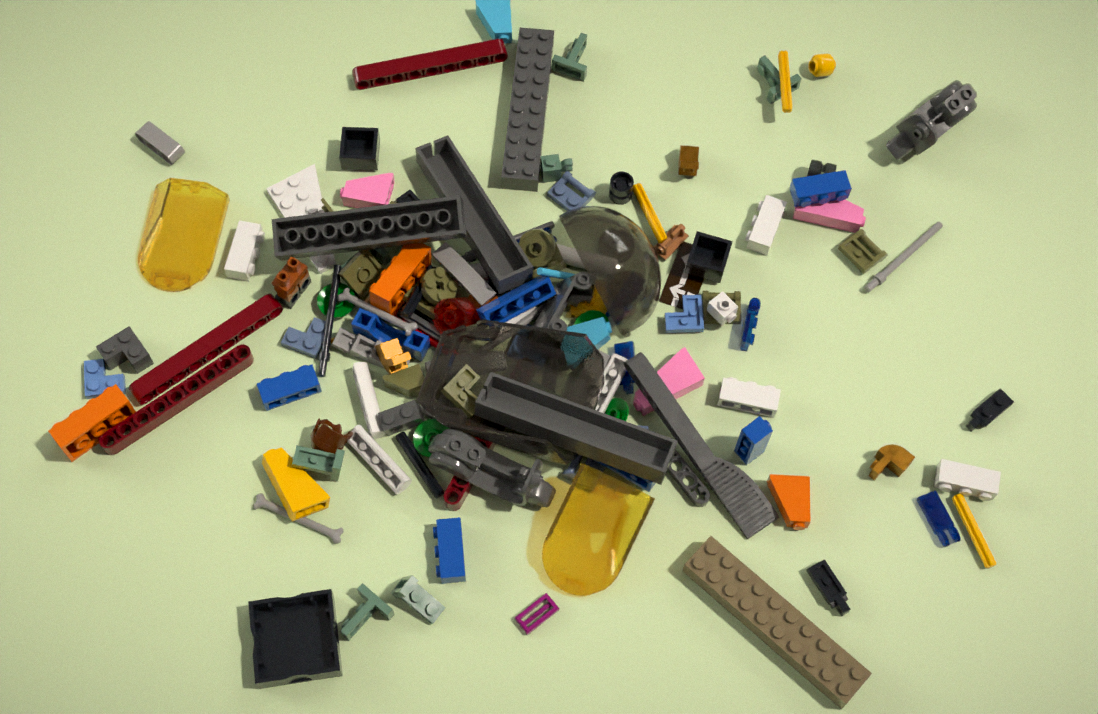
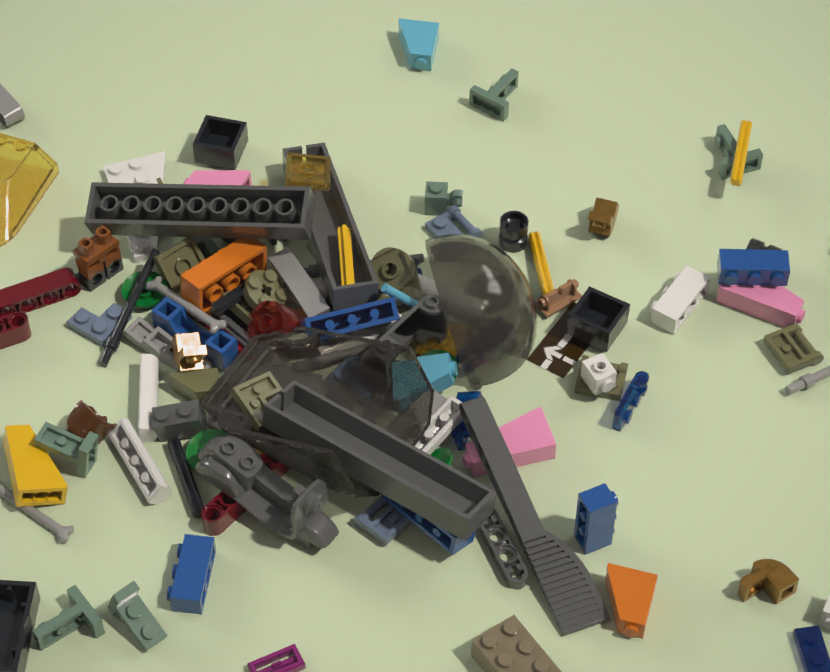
camera: 15 degrees right, 15 degrees down
(244, 251) = (56, 222): white brick -> none
(289, 387) = (60, 368): blue brick -> none
(429, 64) = (328, 74): dark red beam -> none
(444, 169) = (307, 171): none -> clear yellow plate
(497, 244) = (345, 255): none -> yellow axle
(527, 110) = (426, 137): dark grey brick -> none
(593, 531) = (368, 582): clear yellow windscreen -> none
(689, 320) = (555, 384): medium blue plate -> none
(749, 397) = (593, 470): white brick -> none
(822, 65) = (793, 147): yellow head -> none

